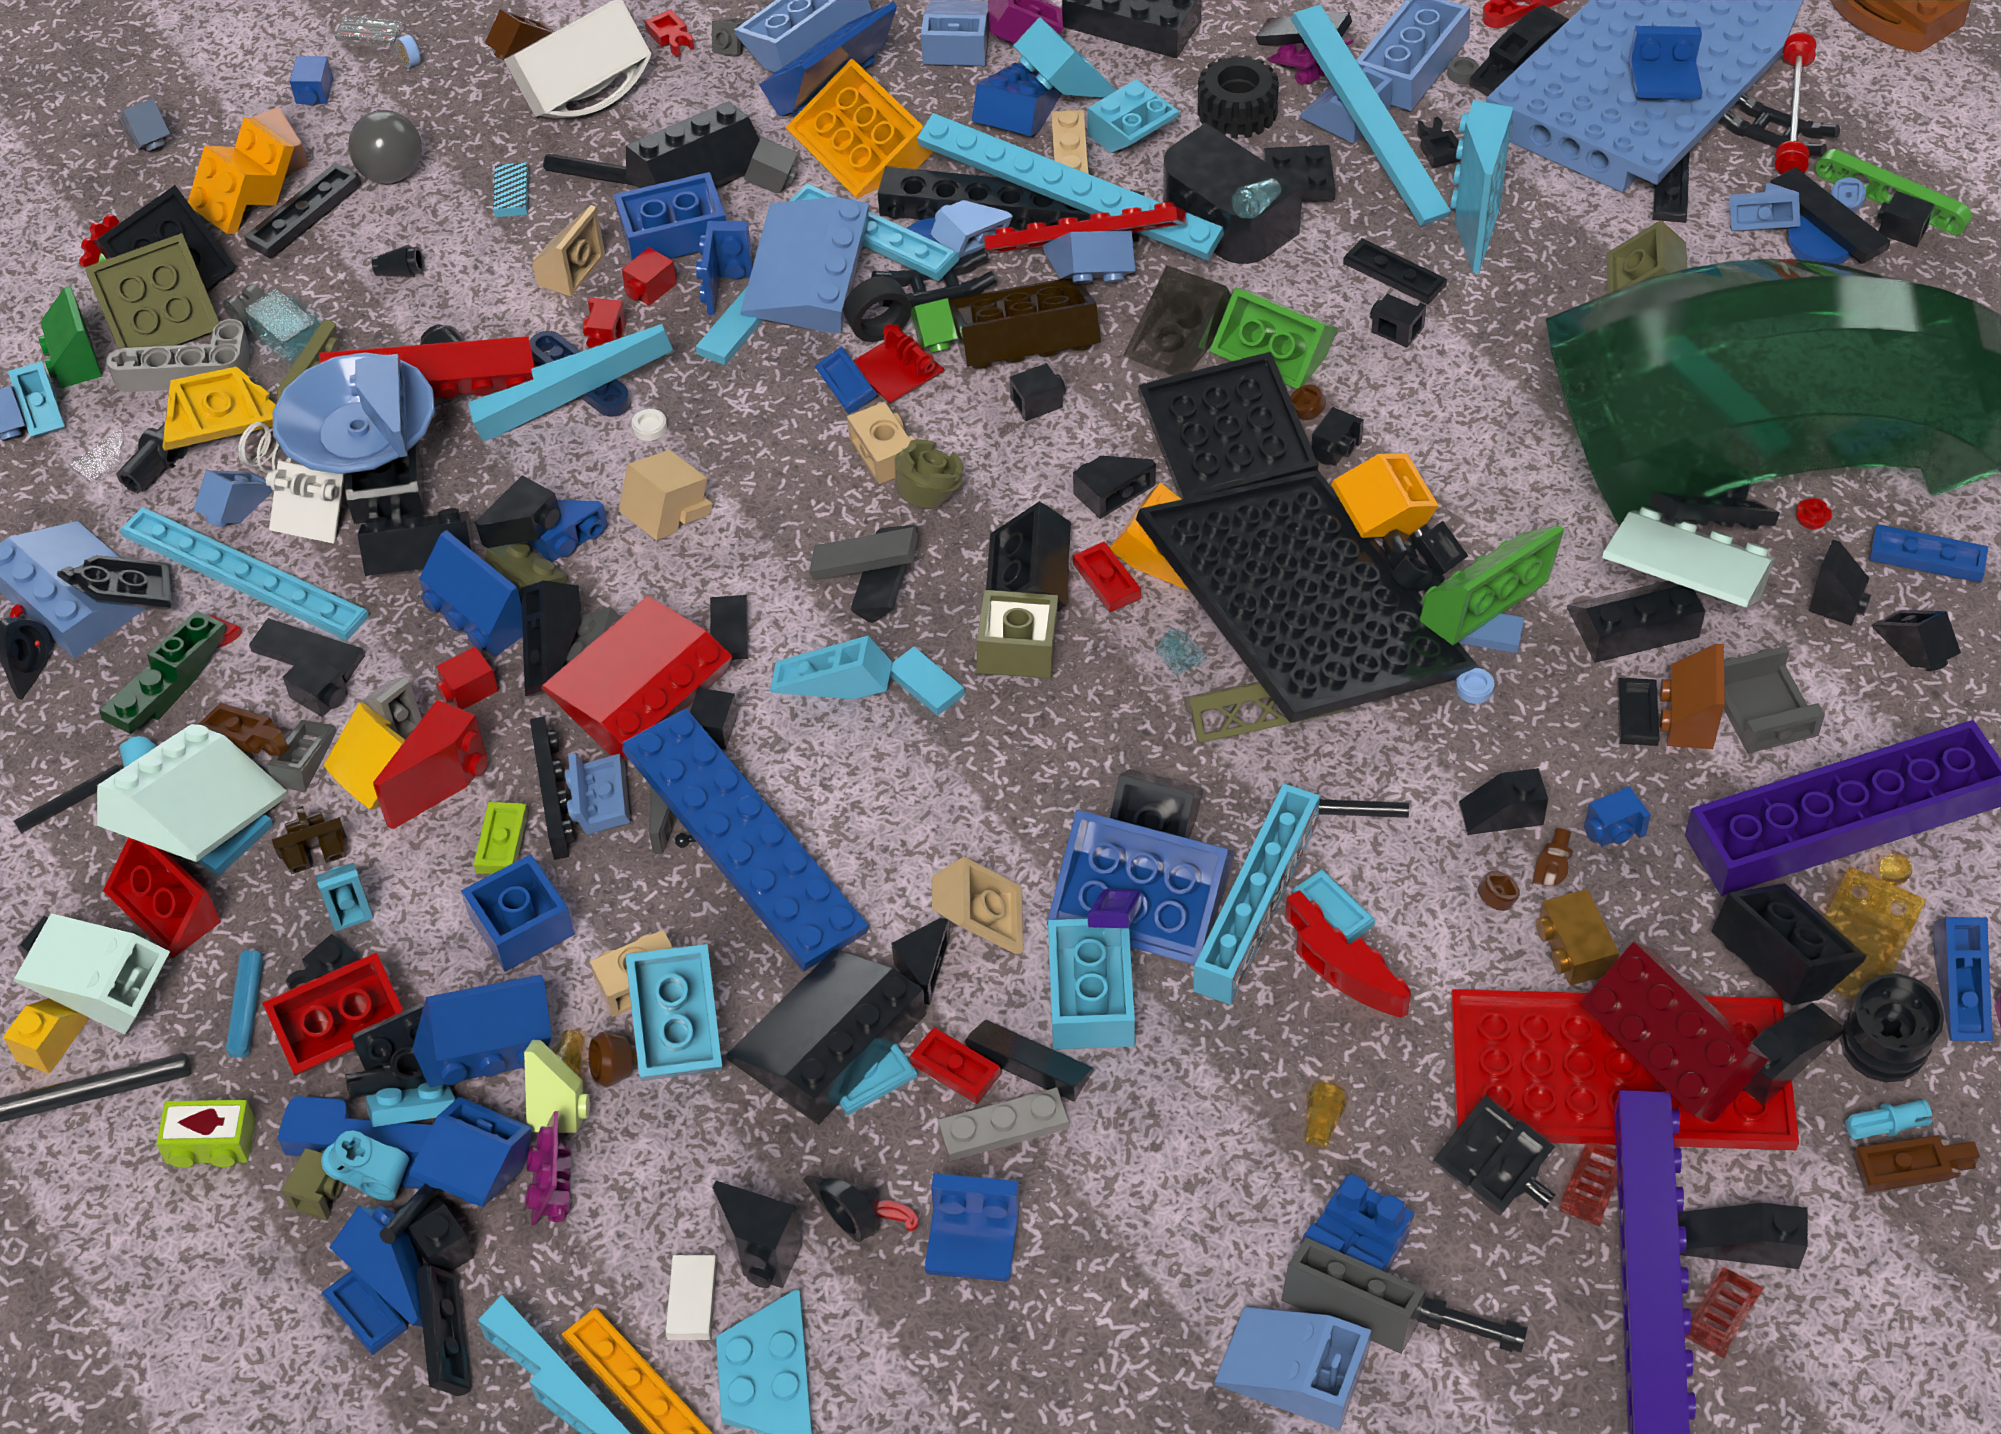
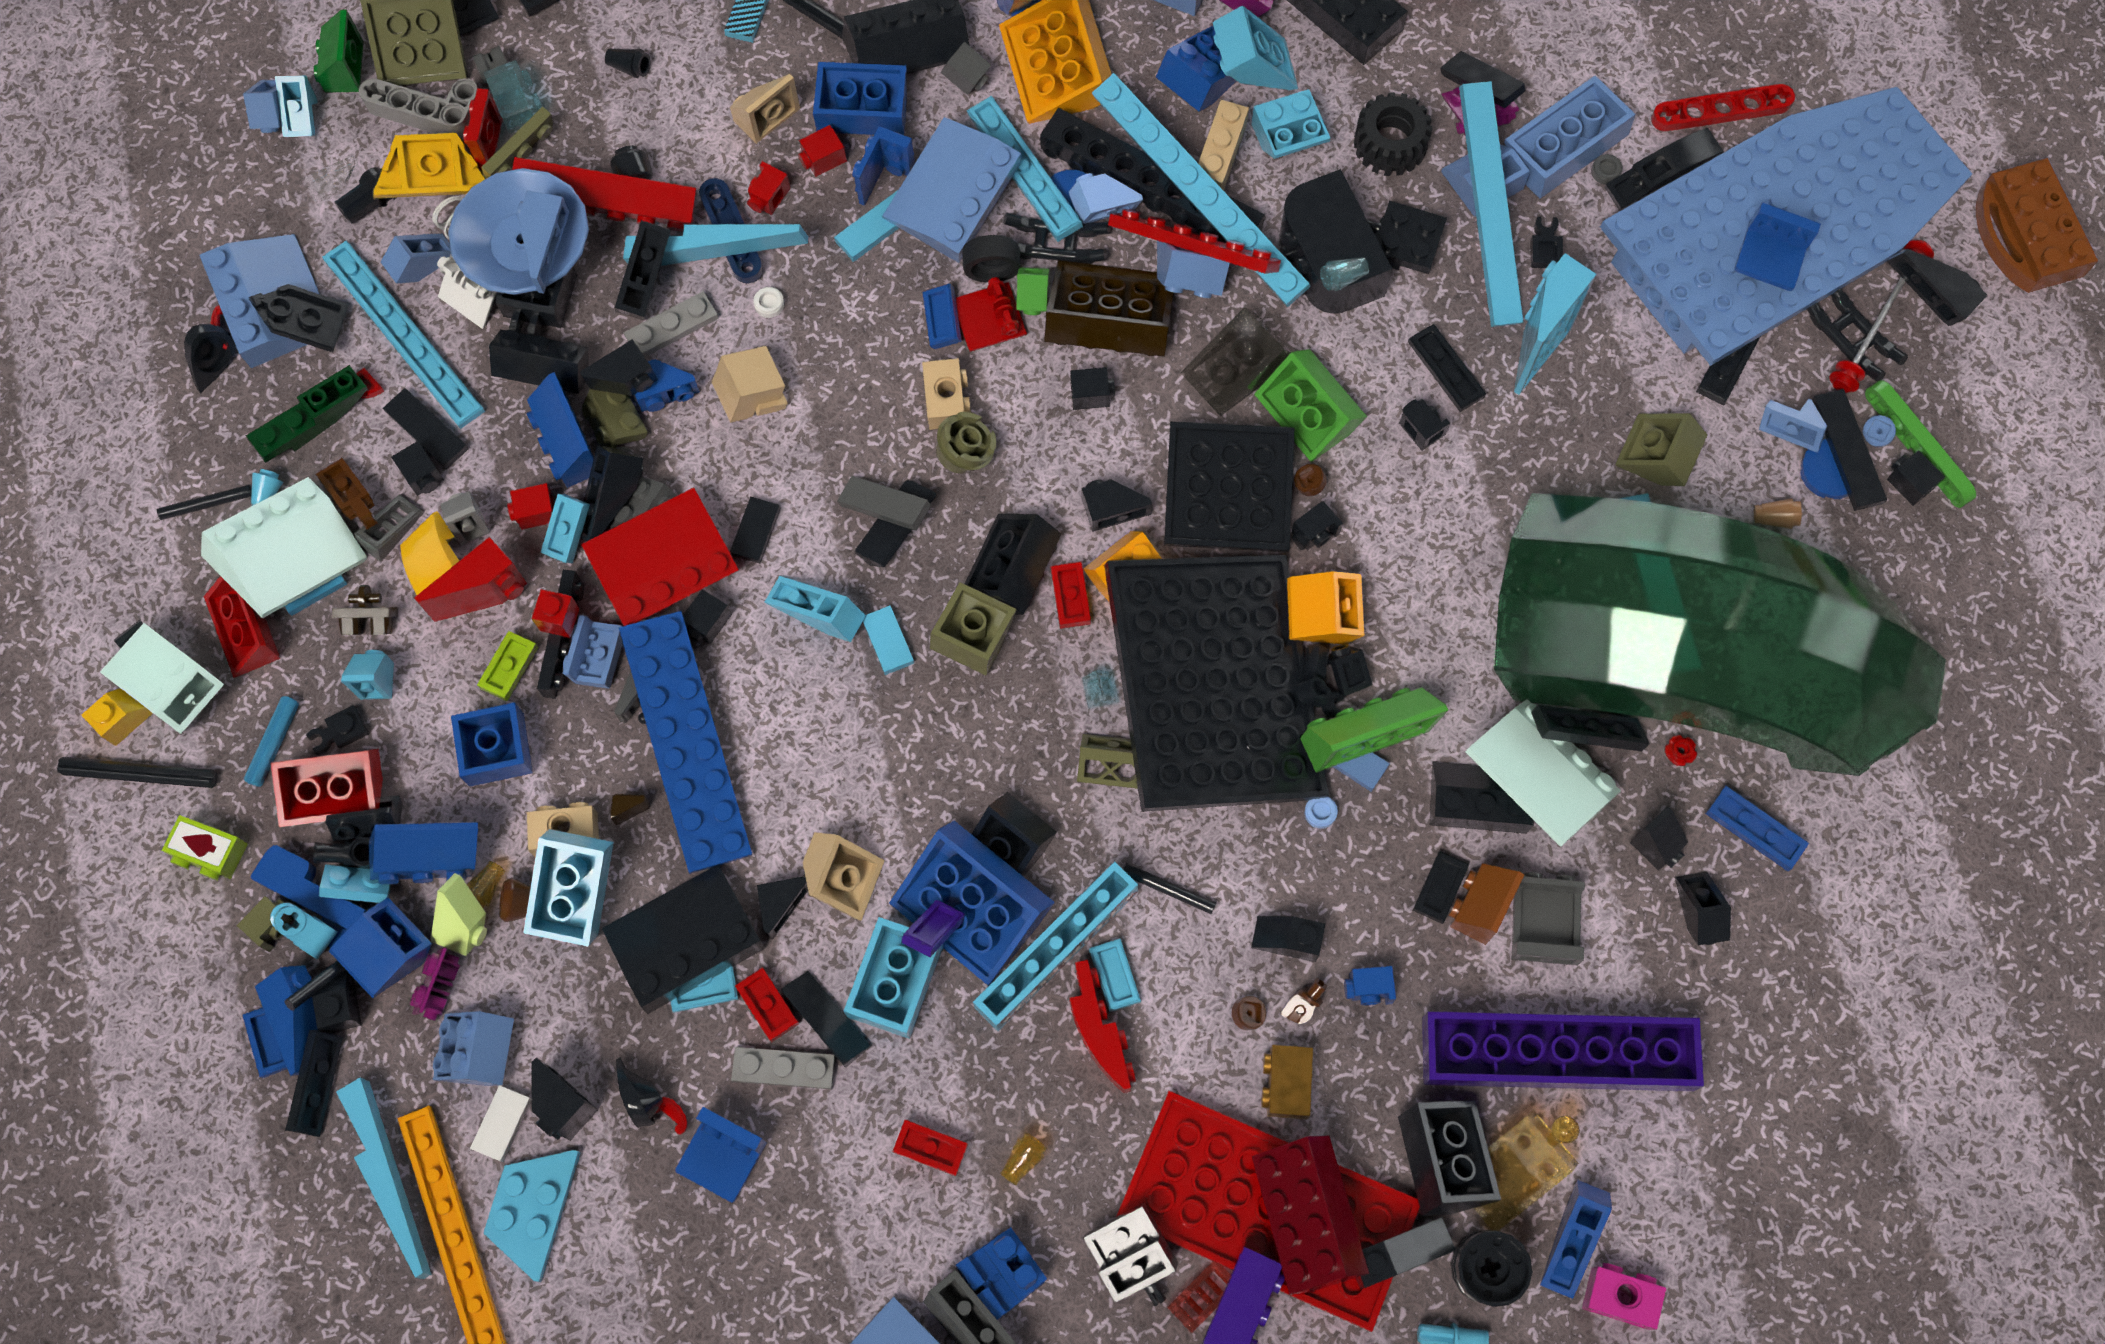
camera: 20 degrees right, 20 degrees up
(263, 355) = (483, 127): none -> red plate
(501, 426) = (642, 270): none -> black slope
(513, 685) = (565, 528): none -> medium azure plate
(543, 752) = (555, 613): none -> red brick
(562, 464) = (672, 324): none -> light grey plate
(625, 1225) = (473, 1048): none -> medium blue slope
(705, 922) = (627, 806): none -> dark brown slope
(1212, 1141) = (930, 1148): none -> red plate
(1834, 60) = (1942, 287): none -> black slope

